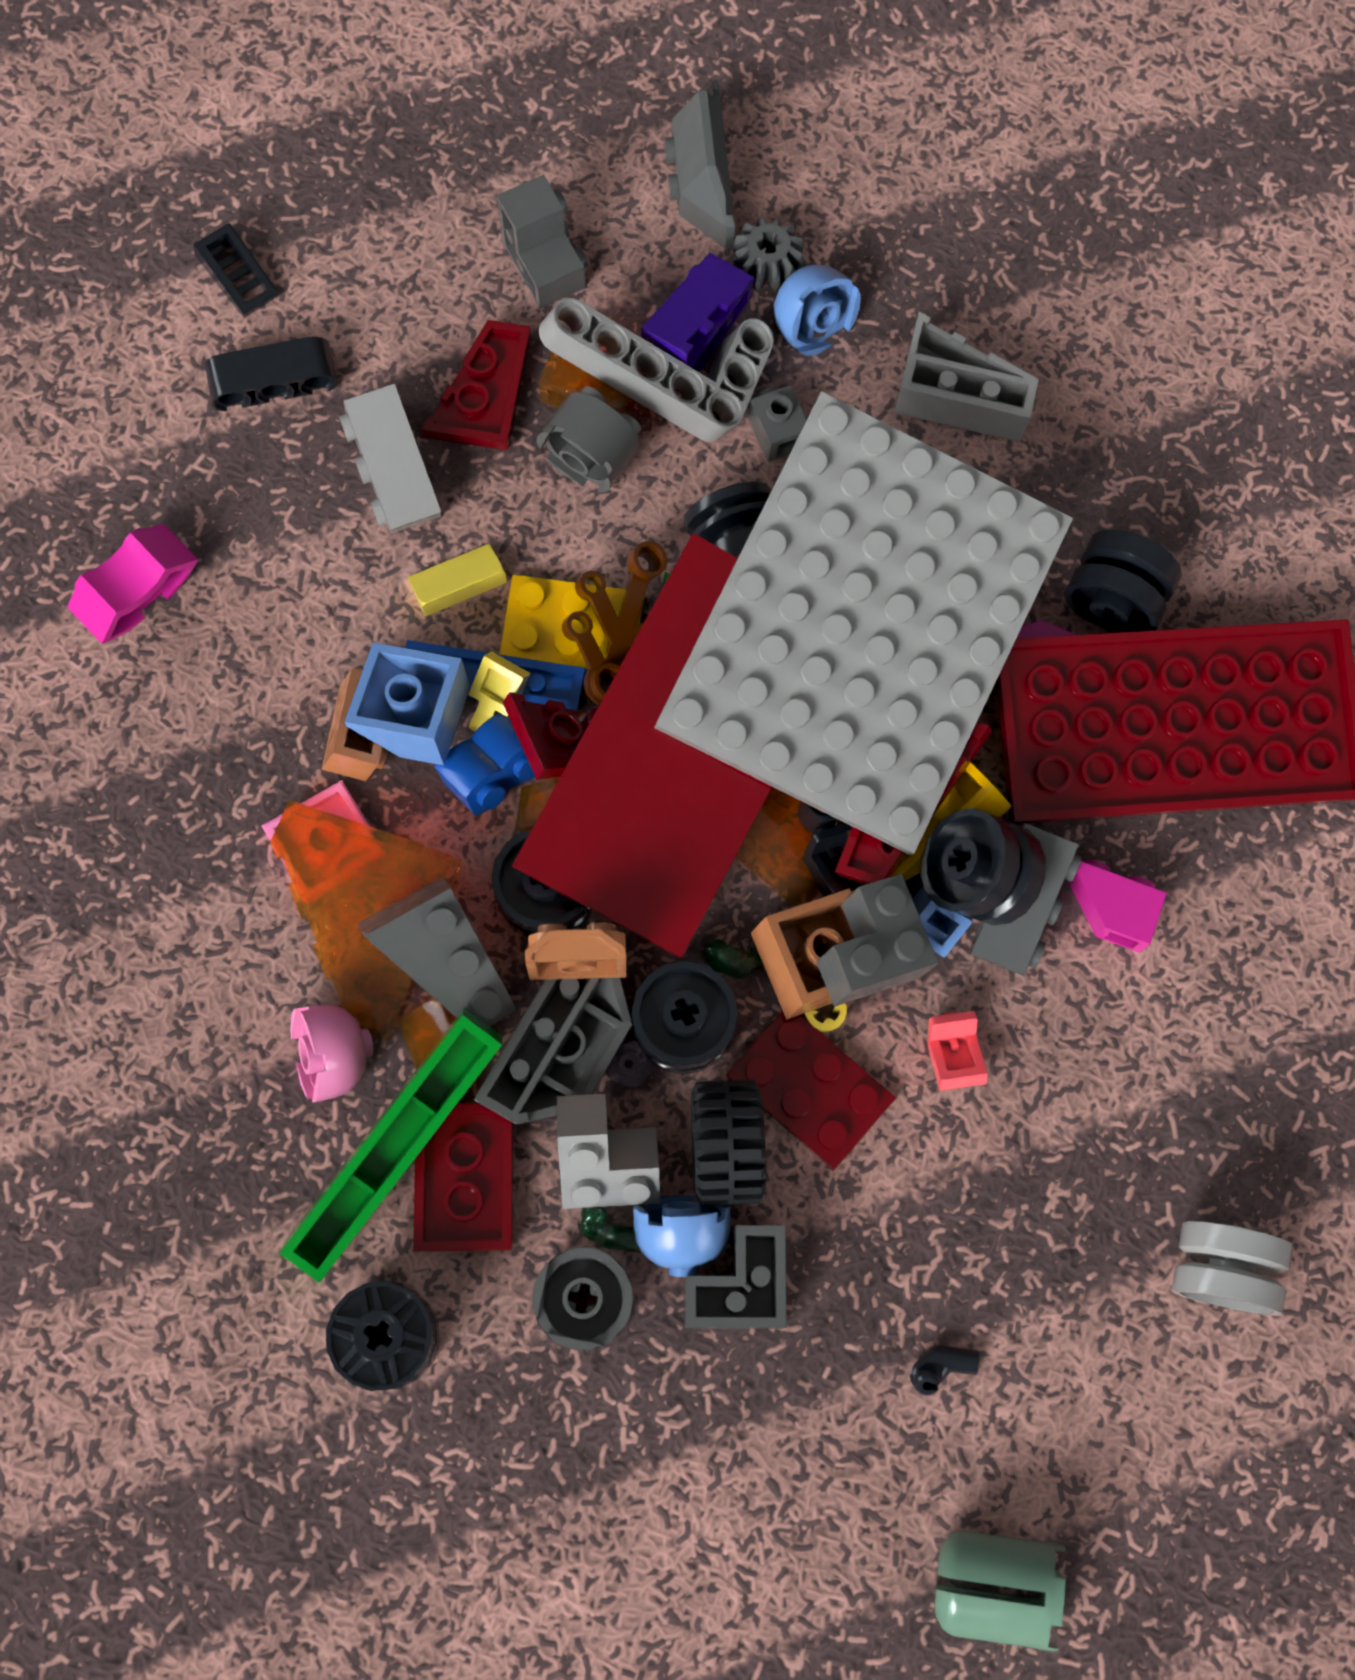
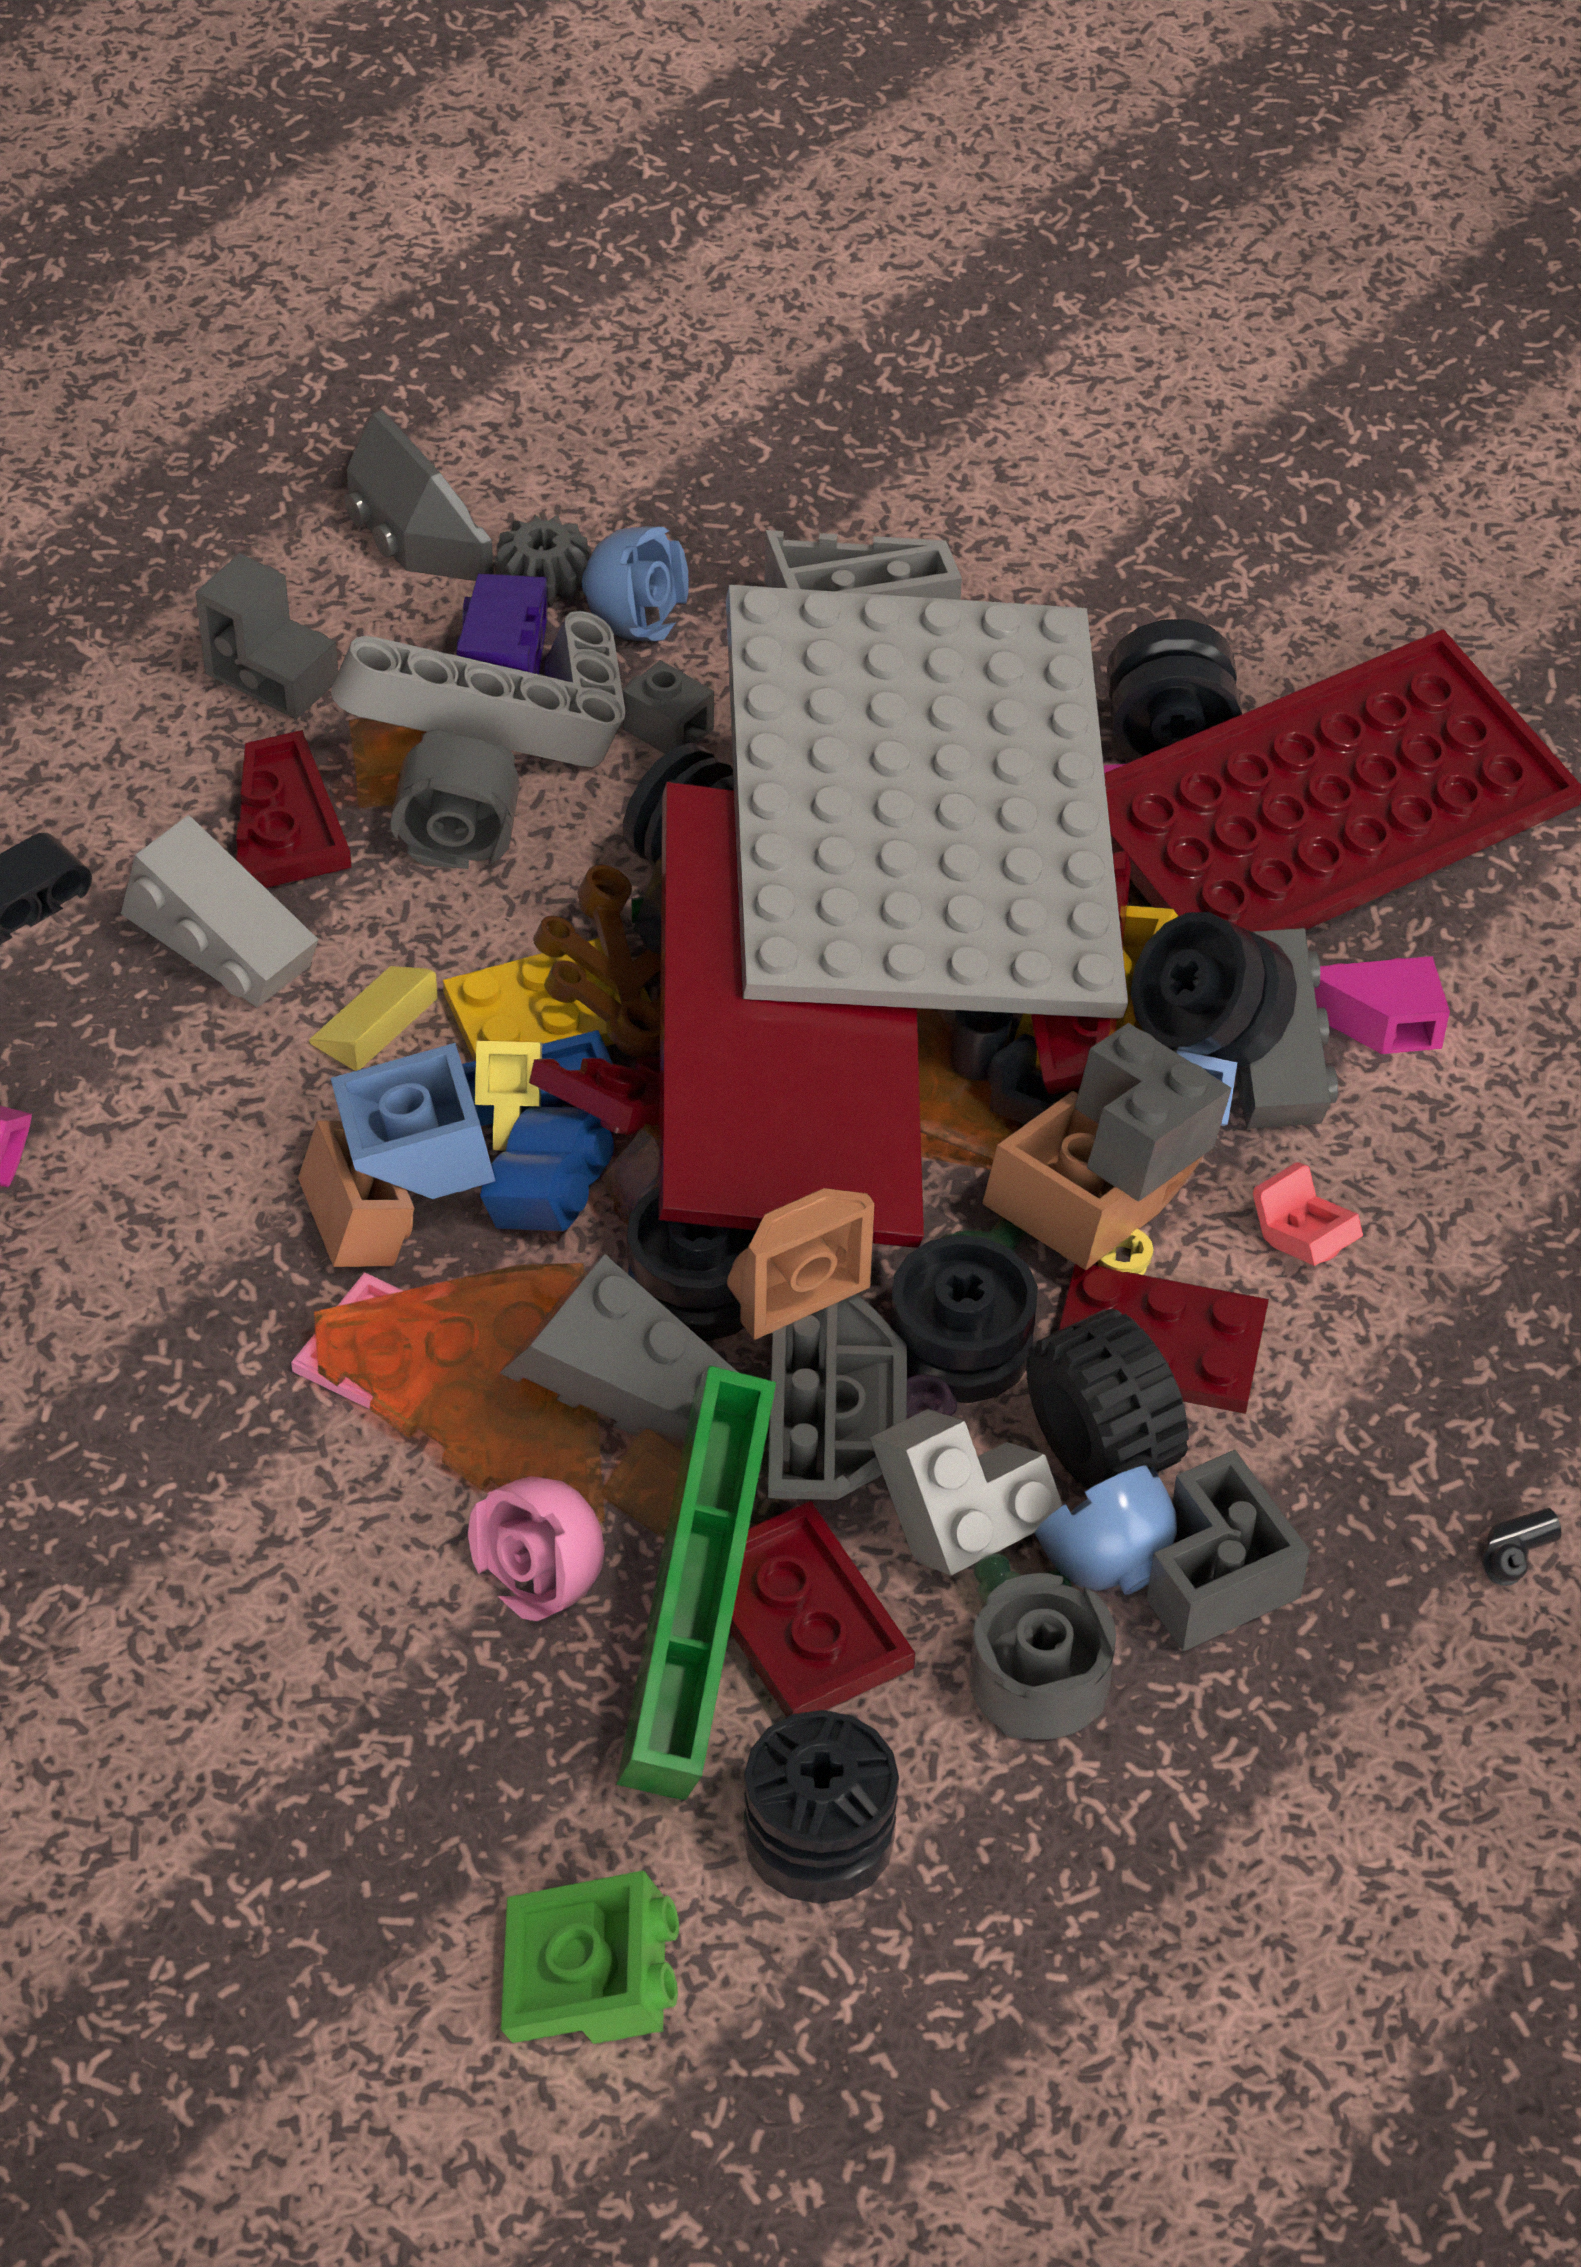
camera: 25 degrees left, 25 degrees down
(195, 1361) = (589, 1960): none -> bright green plate

